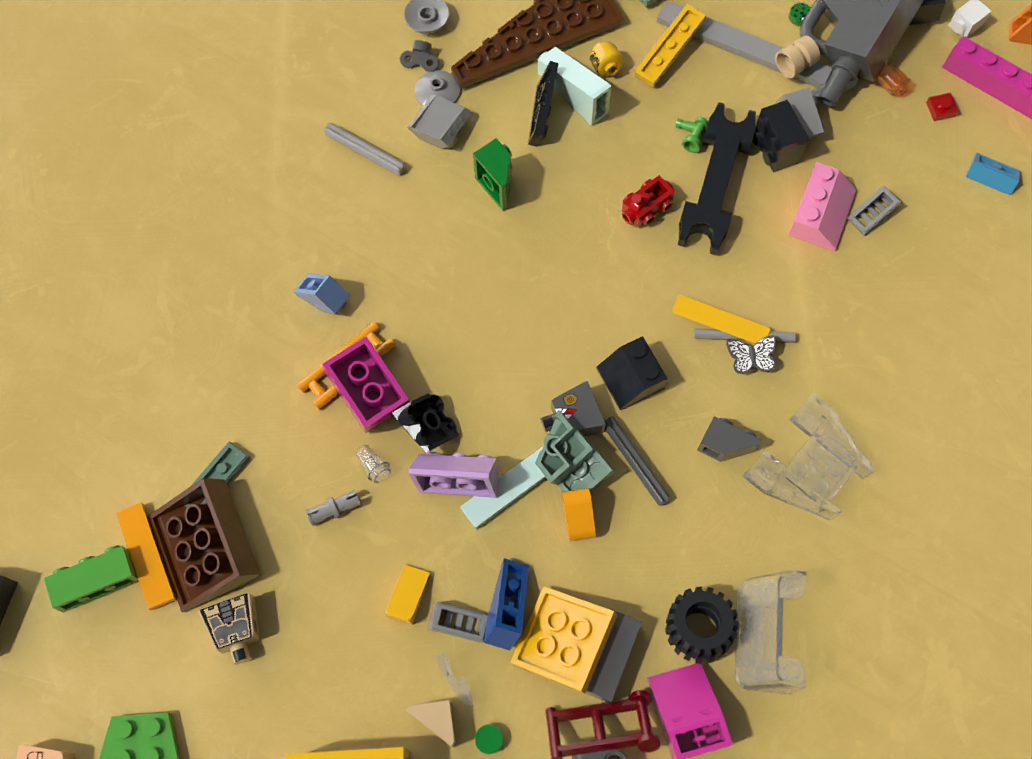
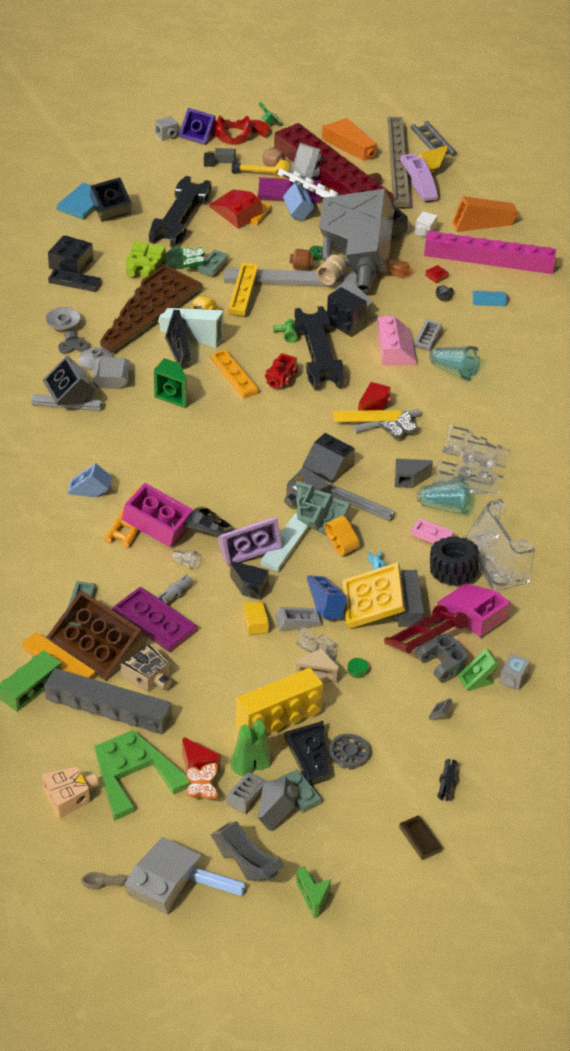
camera: 30 degrees left, 25 degrees down
(162, 655) = (108, 701): none -> dark grey brick
(288, 542) = (156, 619): none -> magenta tile
(375, 125) = (68, 383): none -> black slope
(428, 536) = (249, 579): none -> black slope
(590, 179) = (234, 373): none -> light orange tile
(604, 580) = (377, 562): none -> medium azure arm
(701, 557) = (430, 532): none -> bright pink plate
(744, 295) = (375, 397): none -> red slope
(750, 506) = (446, 495): none -> clear light blue cone
(771, 22) = (302, 259): none -> dark orange head
(886, 274) = (457, 360): none -> clear light blue cone
(934, 144) = (443, 292): none -> black rock

